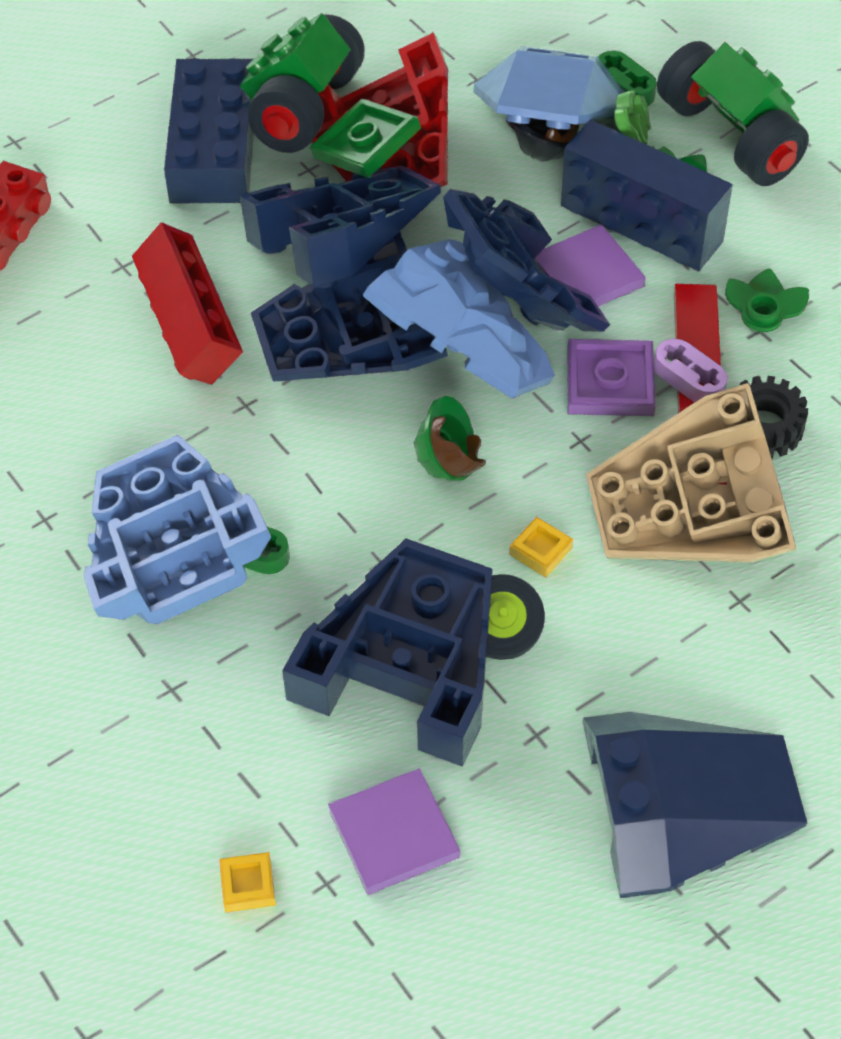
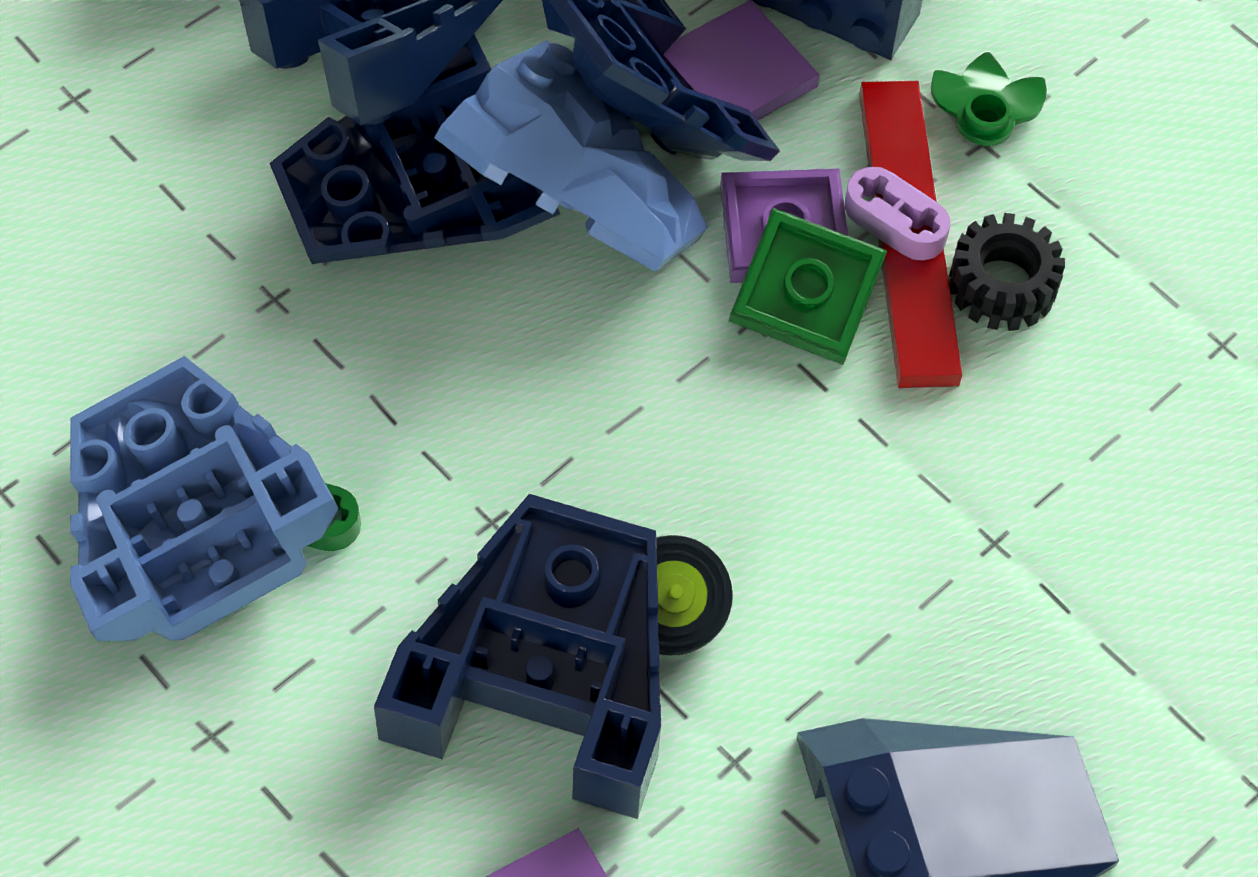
camera: 10 degrees left, 5 degrees up
(186, 304) = (175, 155): red brick -> none
(447, 441) = (569, 341): piece -> none
(541, 547) = (713, 483): yellow tile -> none
(618, 411) = (807, 286): none -> green tile
(665, 493) = (877, 398): tan wedge -> none

